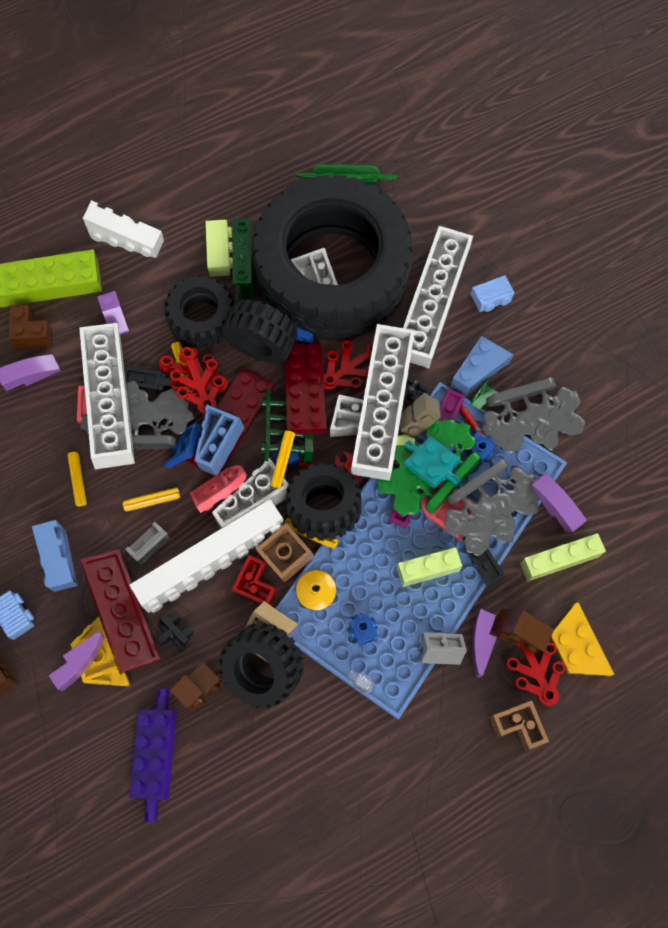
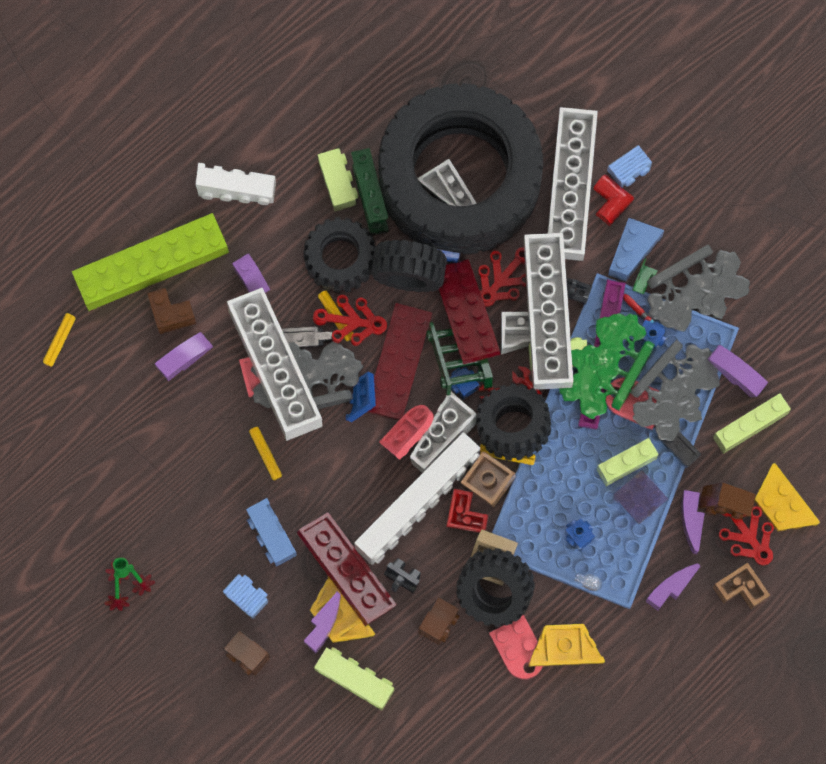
camera: 10 degrees left, 5 degrees up
(94, 727) = (353, 678): none -> yellowish green brick
(148, 544) = (353, 500): light grey hinge -> none
(151, 499) = (343, 456): yellow axle -> none
(153, 755) = (416, 689): dark purple plate -> none
(197, 383) = (359, 330): red plant -> none
(217, 439) = (395, 383): medium blue wedge -> none
(272, 733) = (516, 646): none -> coral plate
(282, 459) = (465, 390): yellow axle -> none
(320, 599) = (524, 517): yellow dish -> none
(321, 744) = (565, 647): none -> yellow wing
(367, 173) = (453, 68): green plant -> none
(420, 416) = (586, 316): dark tan piece -> none
(432, 462) = (609, 361): teal plate -> none
(434, 606) = (640, 497): none -> clear purple piece
(442, 648) = (656, 535): light grey hinge -> none
(447, 706) = (672, 586): none -> medium lavender slope
(473, 319) = (616, 197): none -> red brick

